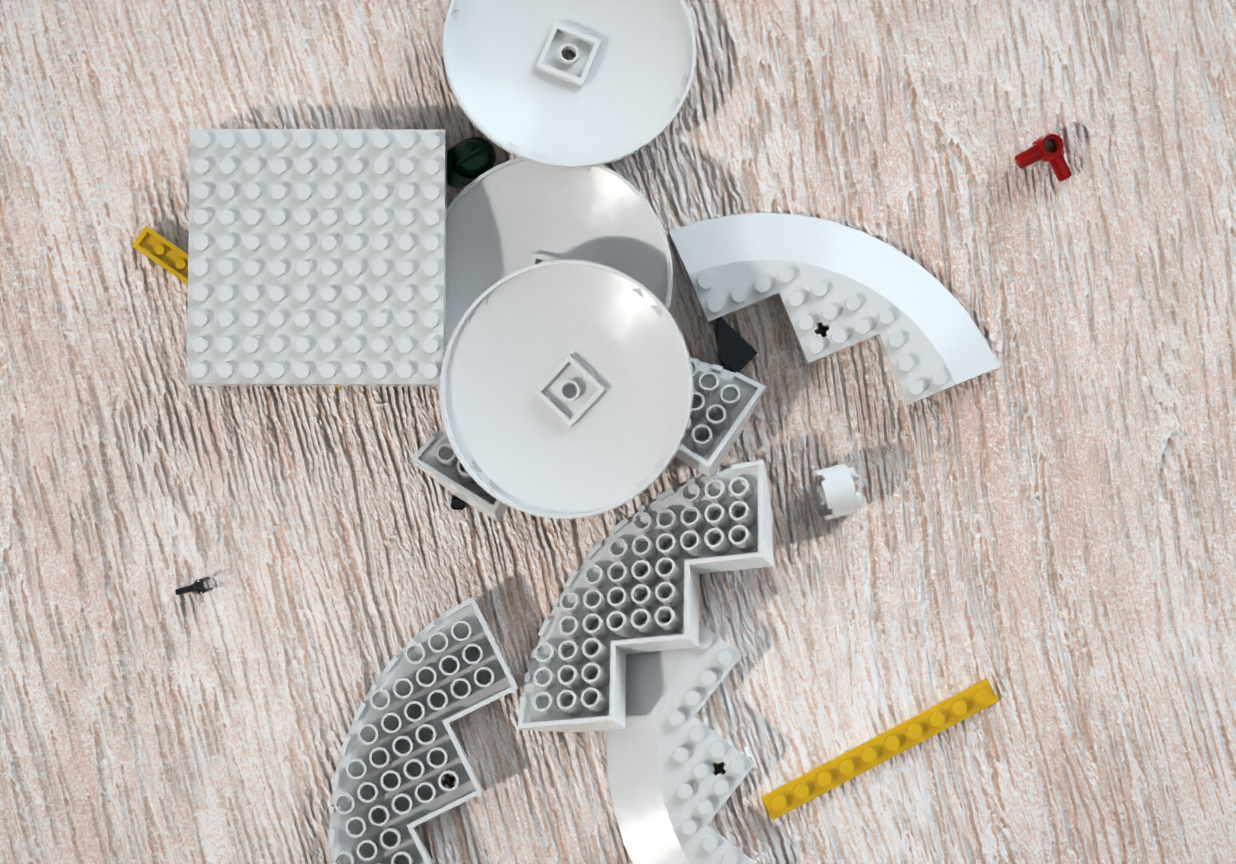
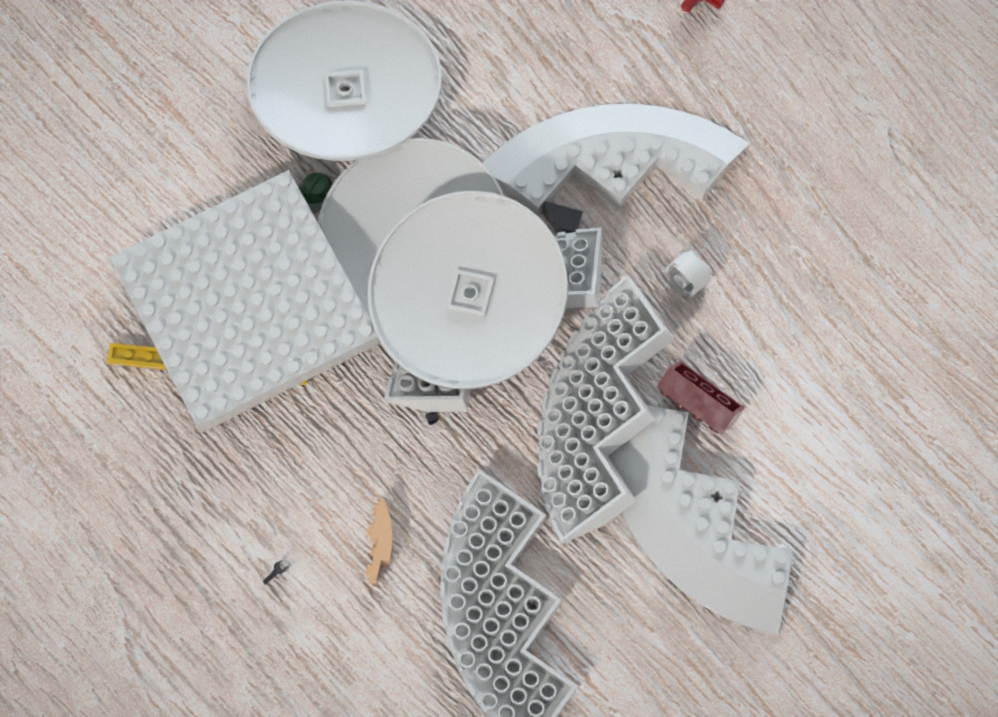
camera: 30 degrees left, 15 degrees down
(332, 606) = (382, 534): none -> light nougat slope
(766, 645) = (700, 397): none -> brick
(879, 749) = (817, 432): yellow plate -> none

